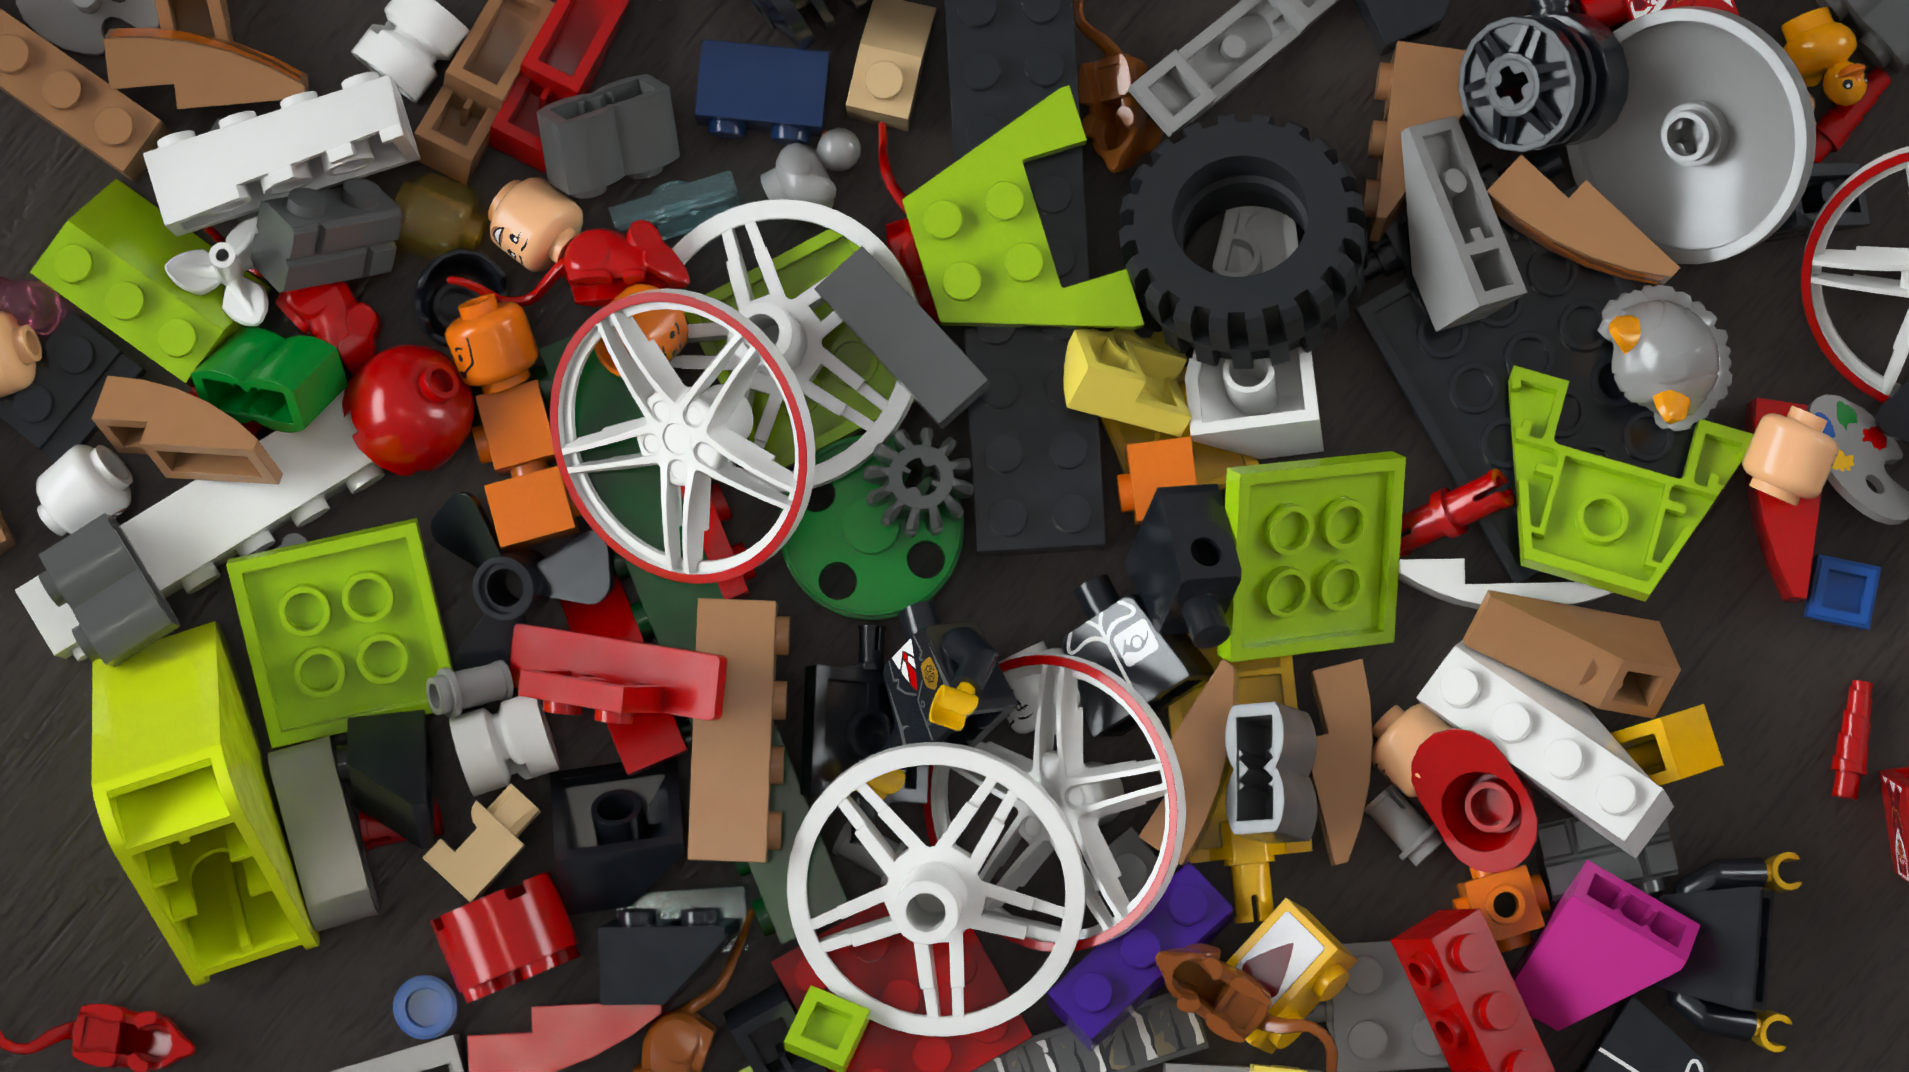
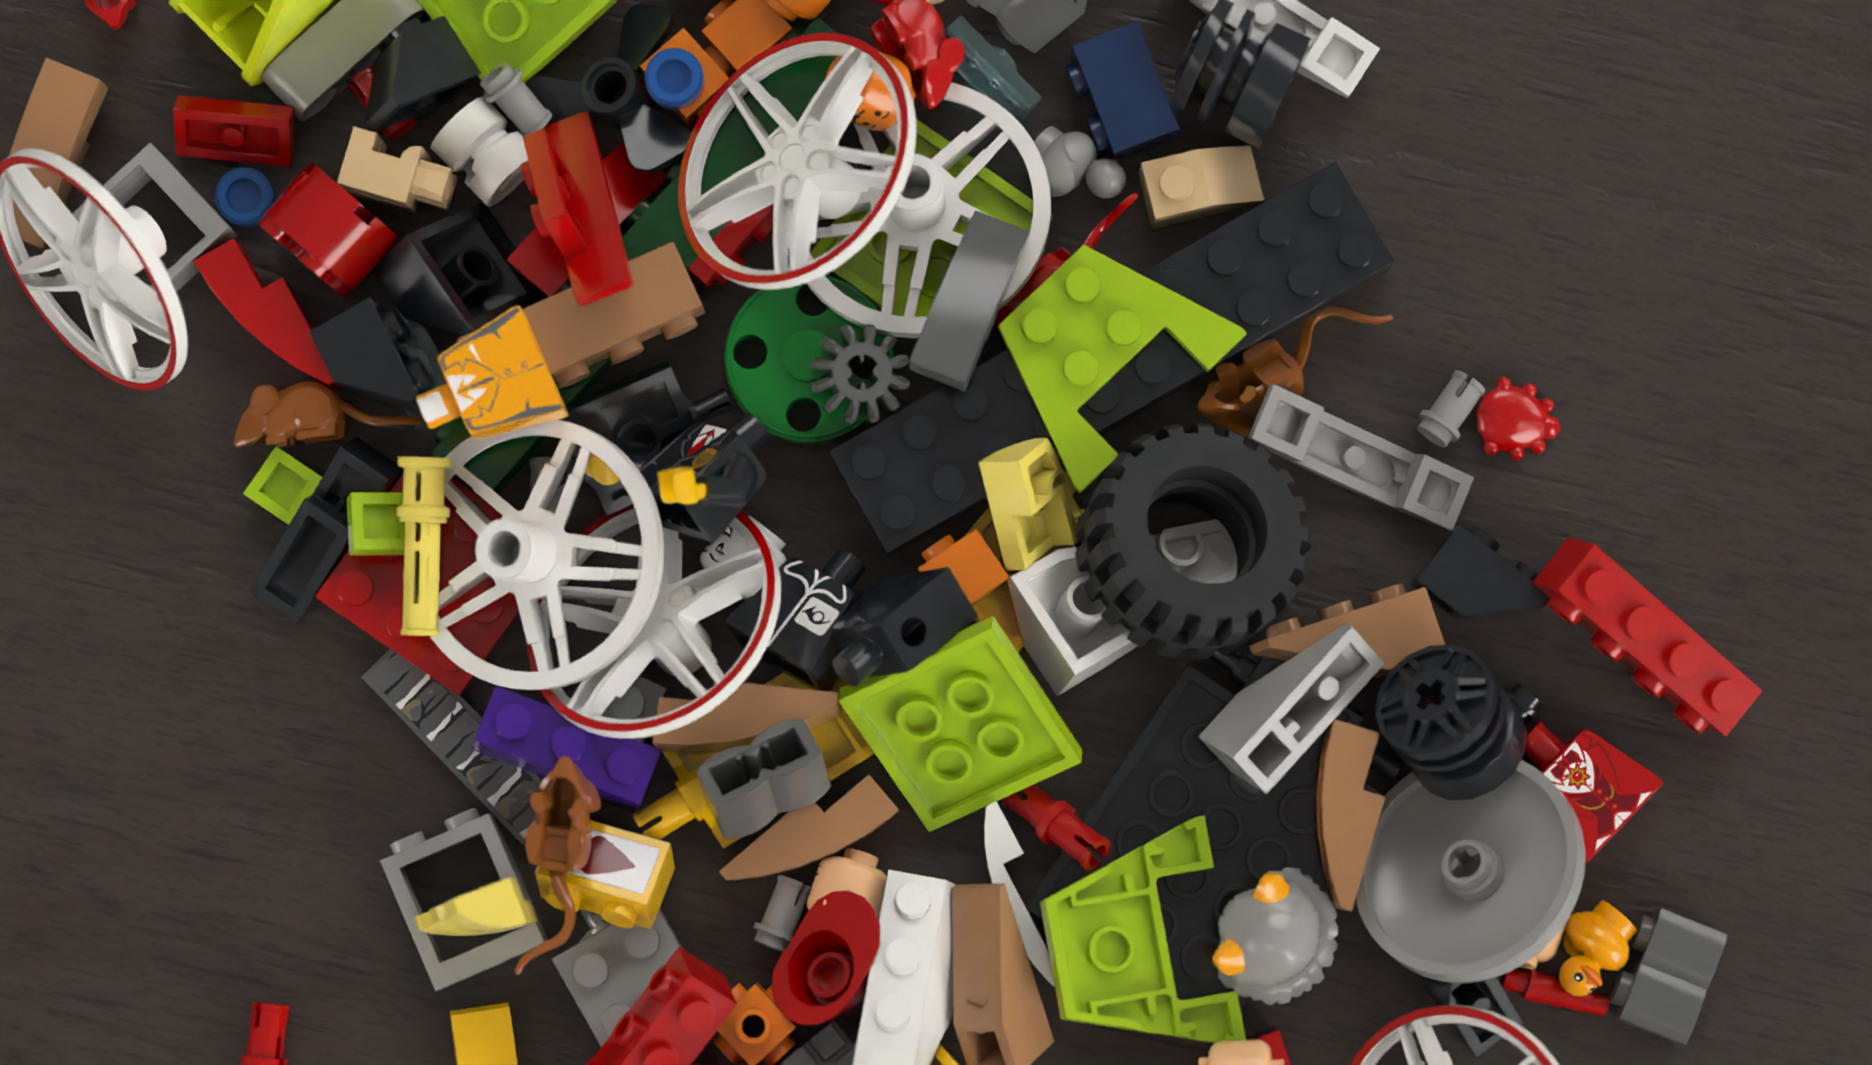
camera: 65 degrees right, 0 degrees up
(355, 984) = (234, 131): none -> red plate
(532, 518) = (674, 78): none -> blue tile
(752, 840) = (495, 381): none -> light orange torso
(843, 980) = (423, 513): none -> light yellow pin

